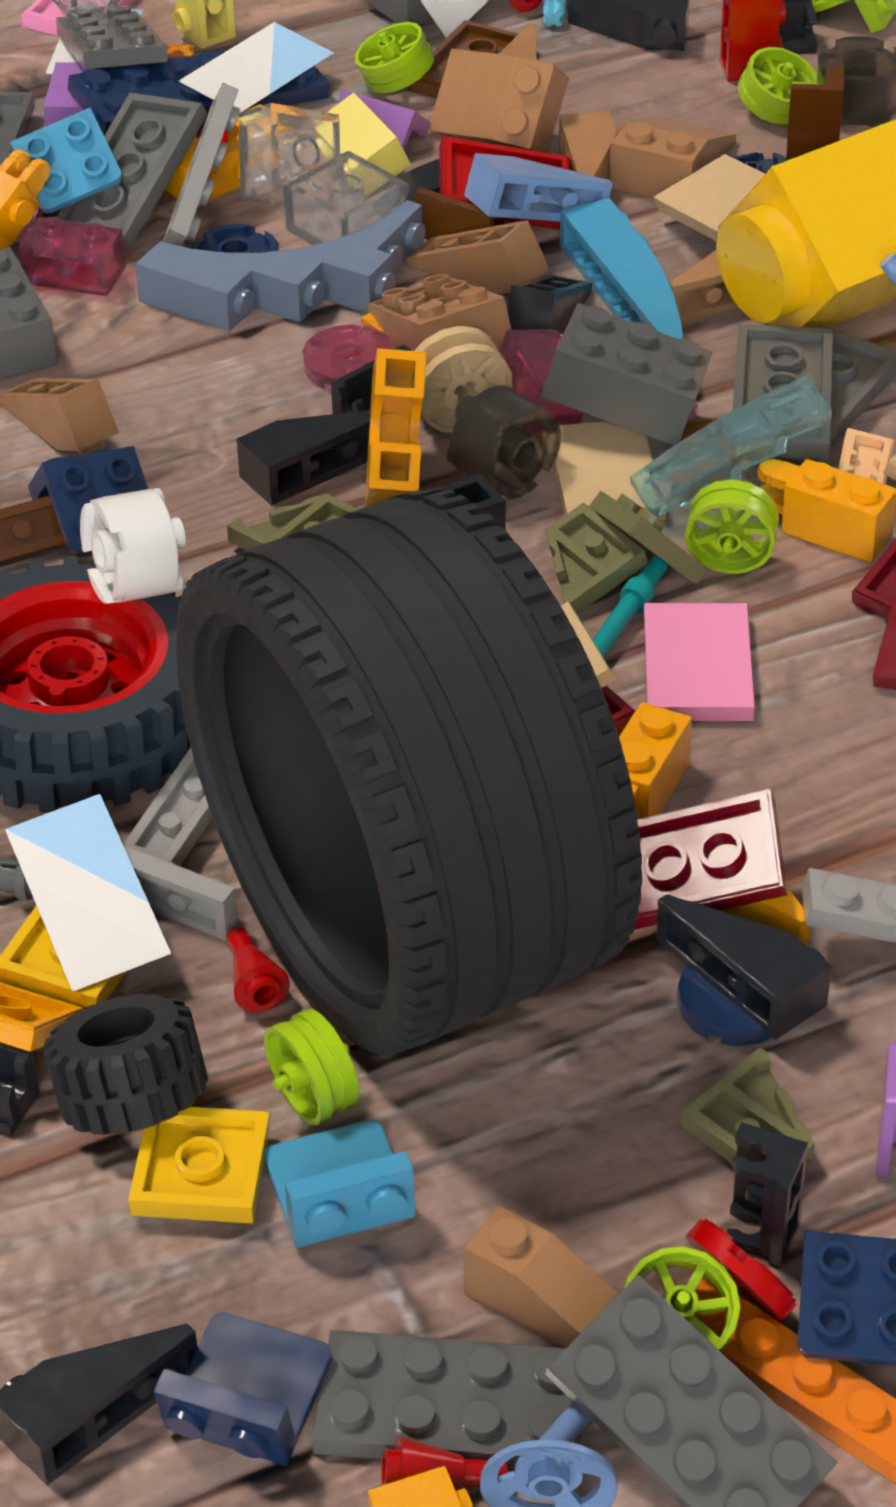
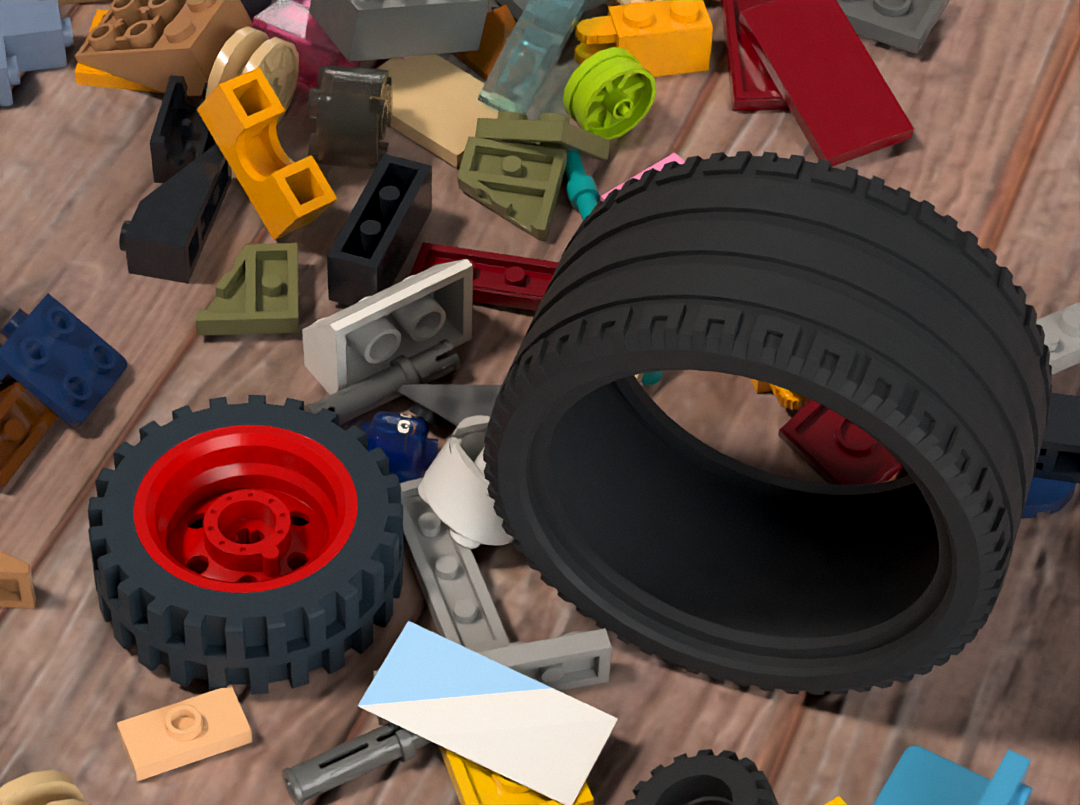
camera: 45 degrees left, 5 degrees up
(132, 546) = (231, 378): white brick -> none
(256, 977) = (686, 693): red cone -> none
(311, 1066) = (843, 735): lime wheel -> none
(327, 350) = (104, 94): clear pink tile -> none

